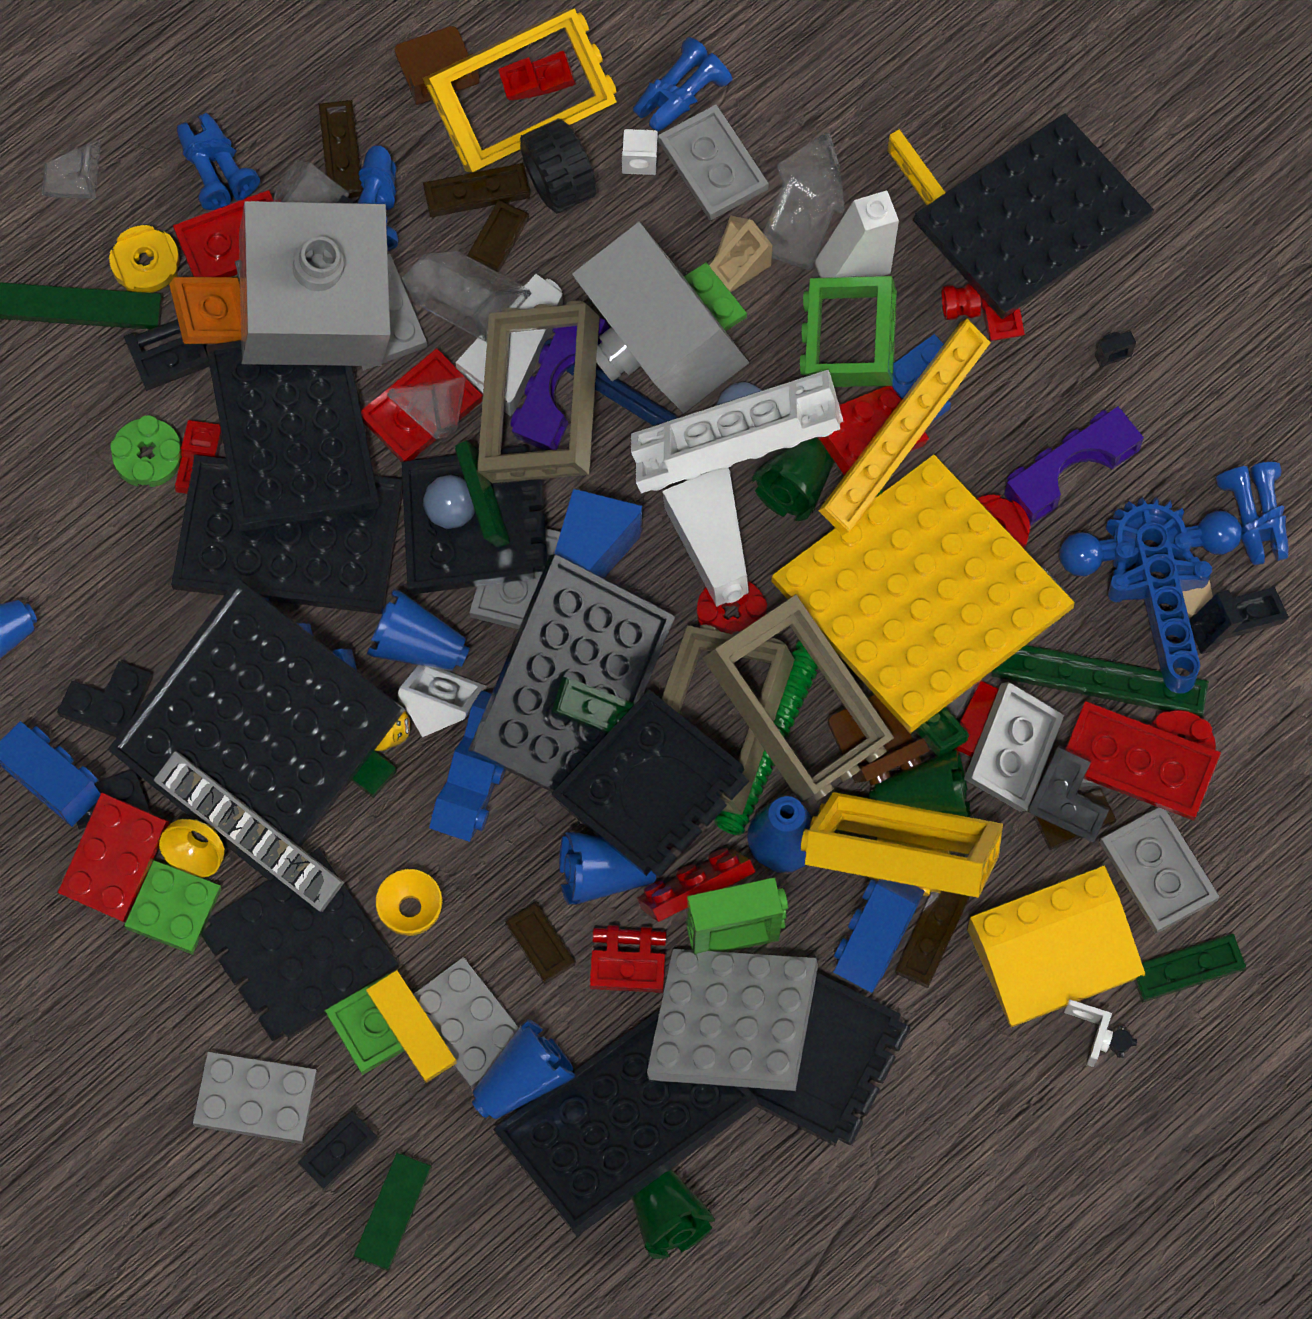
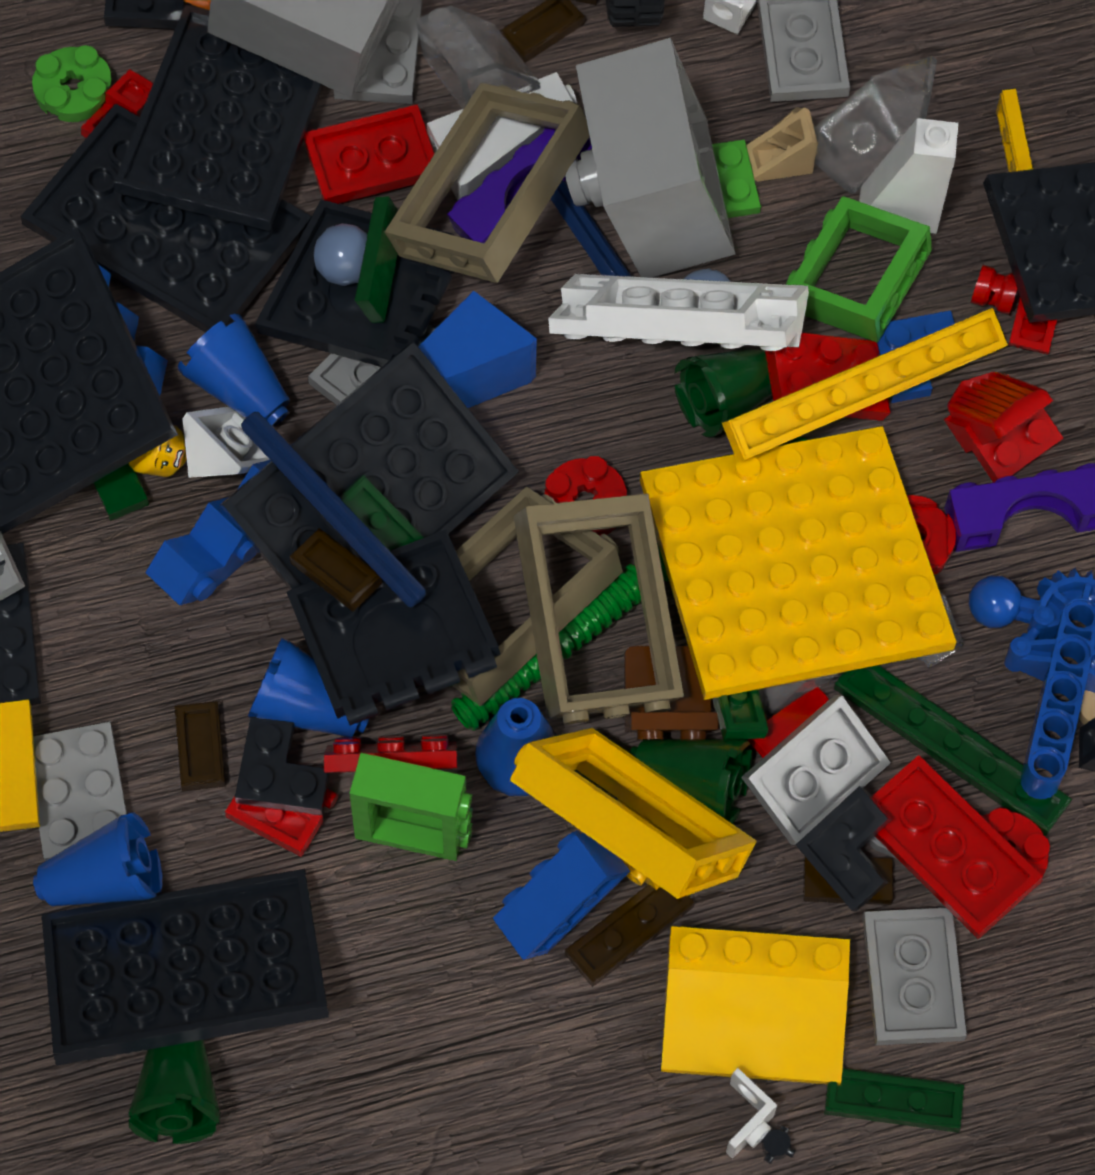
camera: 25 degrees right, 5 degrees down
(405, 885) = (81, 621): yellow piece -> none
(432, 404) = (380, 154): clear slope -> none
(561, 715) = (333, 509): none -> dark blue axle
(583, 760) = (336, 570): none -> dark brown tile
(612, 945) = (270, 780): none -> black plate
(709, 529) = (605, 401): white slope -> none
(733, 1019) = (353, 916): light grey plate -> none
(838, 1057) = (429, 996): black hinge -> none
(1016, 408) = (1001, 422): none -> red piece

